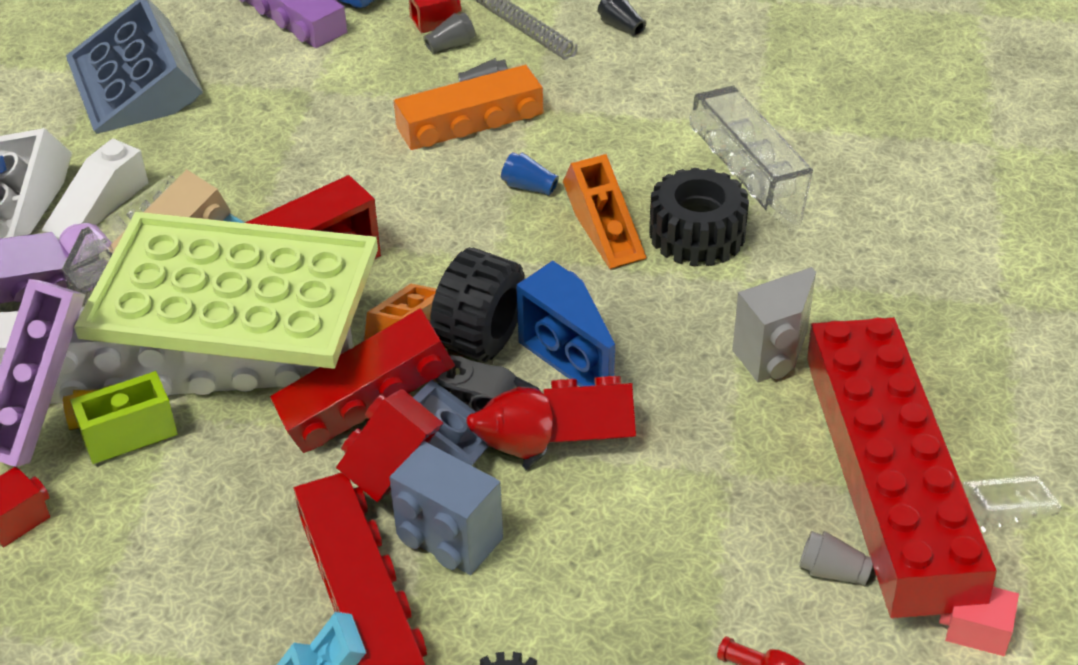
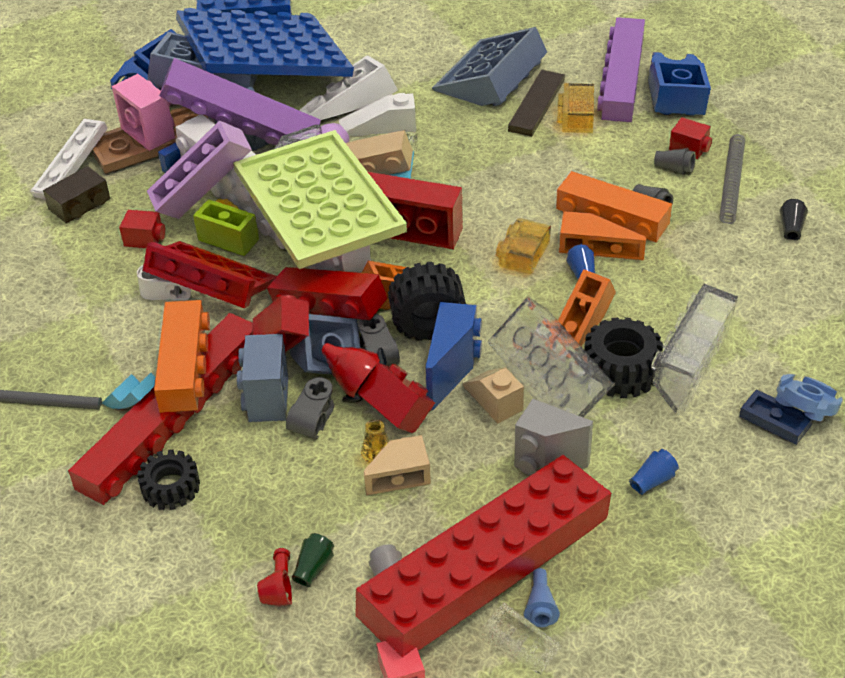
camera: 55 degrees right, 0 degrees up
(142, 532) = (156, 288): none -> white piece
(191, 475) = (206, 272): none -> red fence
(232, 73) = (536, 103): none -> dark brown tile
(287, 48) = (576, 108): none -> clear yellow brick
(339, 564) = (181, 356): none -> orange brick
(451, 197) = (523, 245): none -> clear yellow brick
(487, 143) = (600, 236): none -> orange slope
(527, 498) = (311, 409): none -> dark grey piece
(637, 471) = (374, 440): none -> clear yellow cone
(650, 331) = (497, 393): none -> tan slope
(666, 262) = (549, 360): none -> clear brick
(688, 465) = (398, 466): none -> tan slope
(760, 618) = (313, 557): none -> dark green cone
(863, 131) = (809, 395): none -> medium blue plate
(866, 168) = (775, 417): none -> dark blue plate
(866, 281) = (656, 470): none -> blue cone
(978, 459) = (541, 606): none -> medium blue cone

